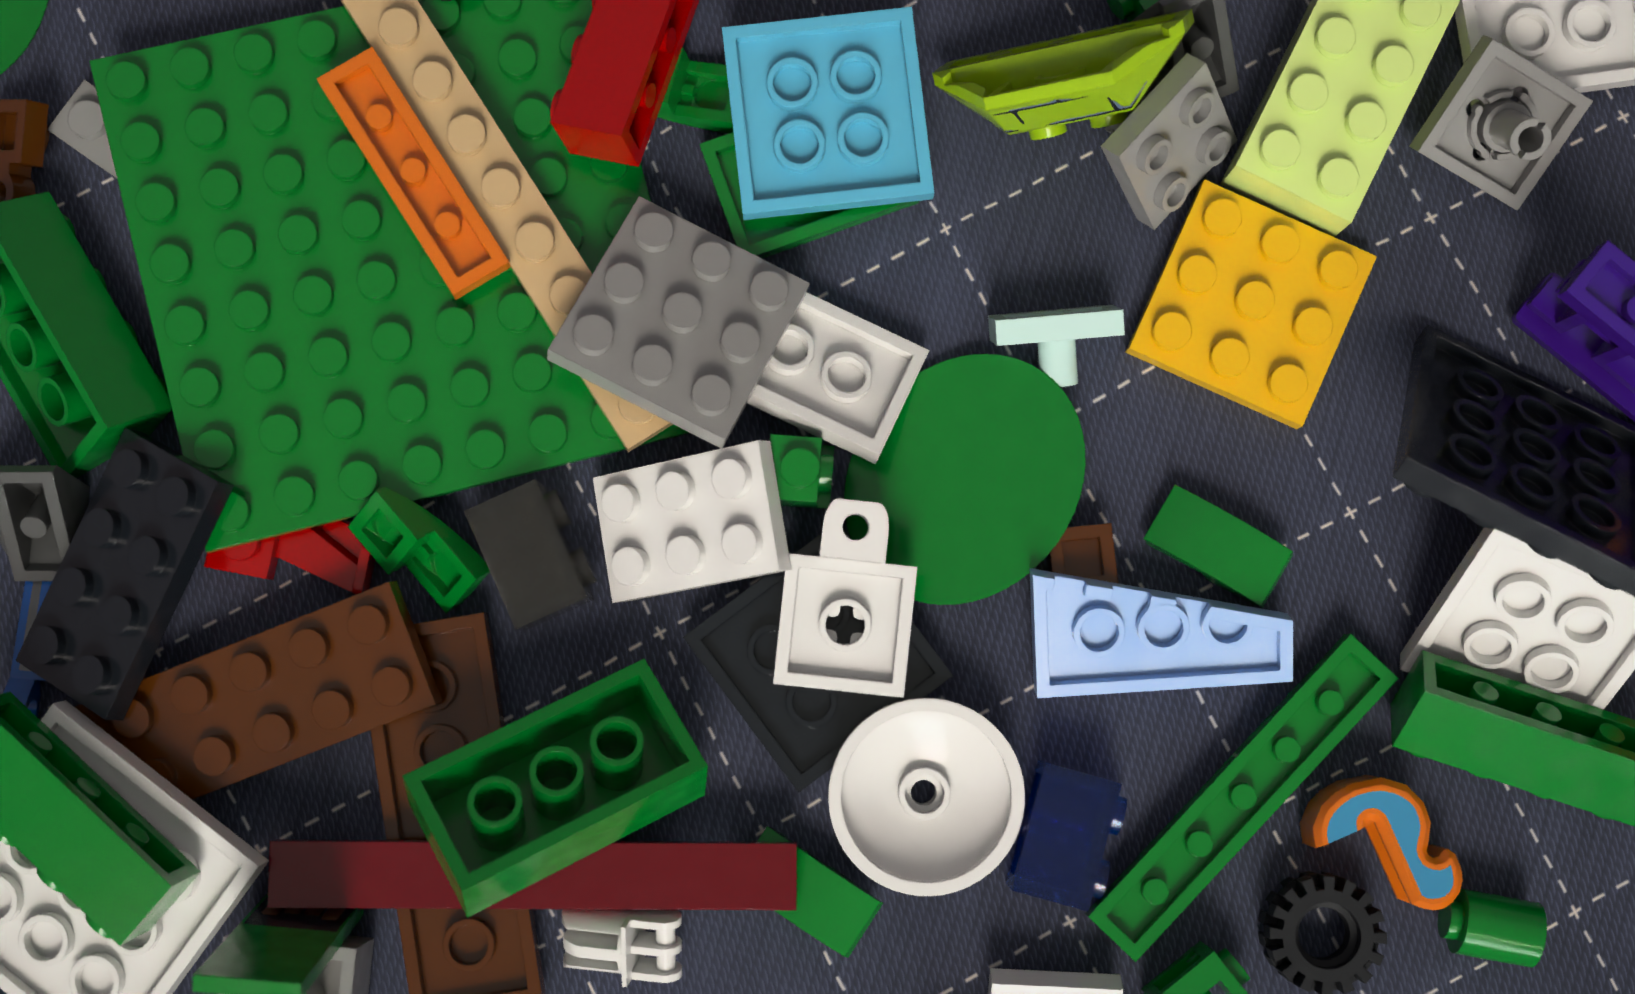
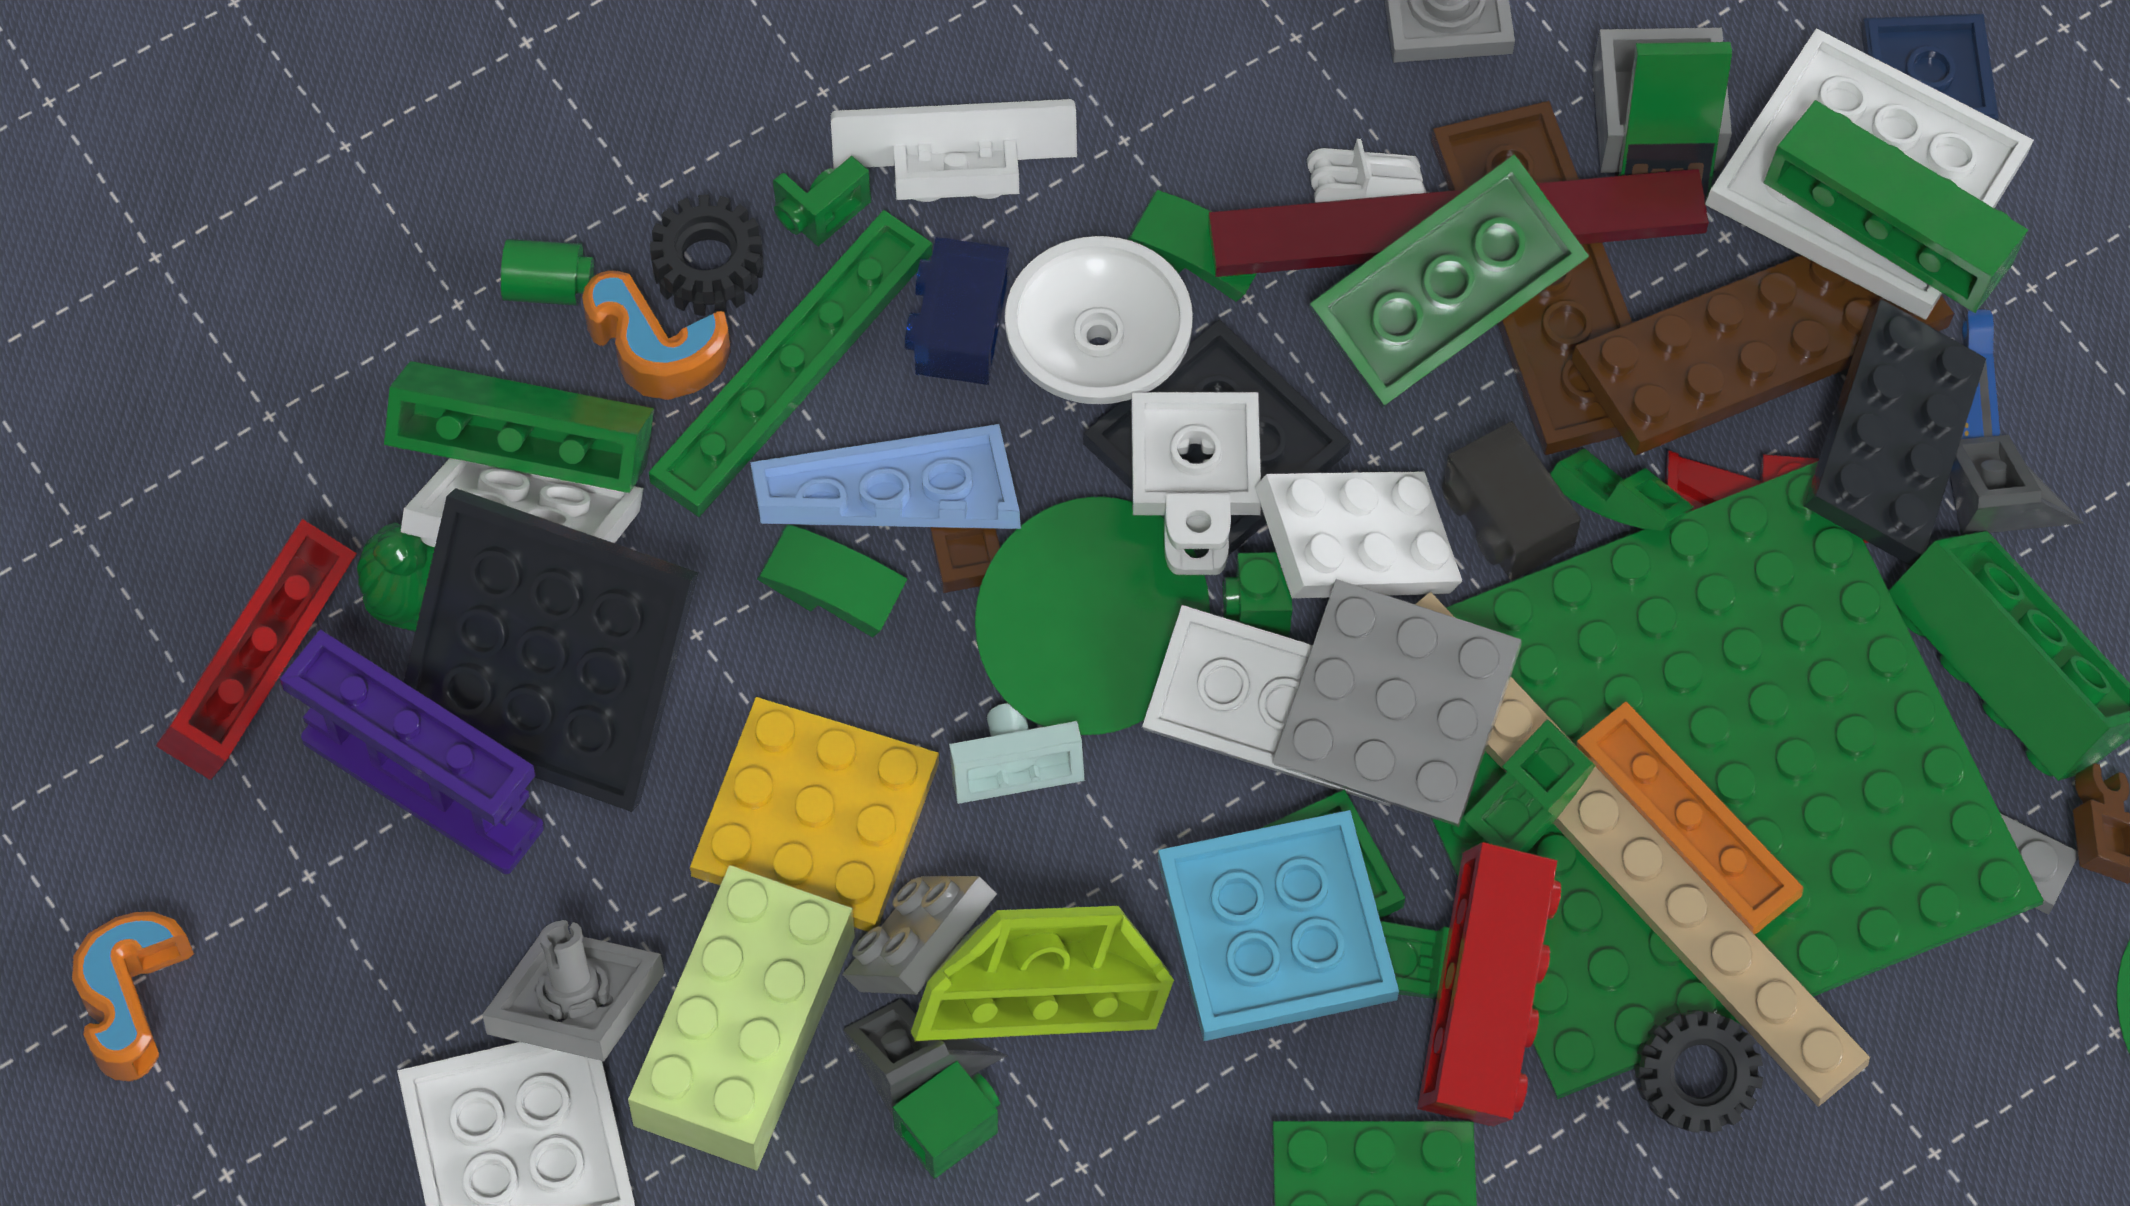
camera: 175 degrees right, 20 degrees down
(564, 211) = (1533, 792): none -> green slope

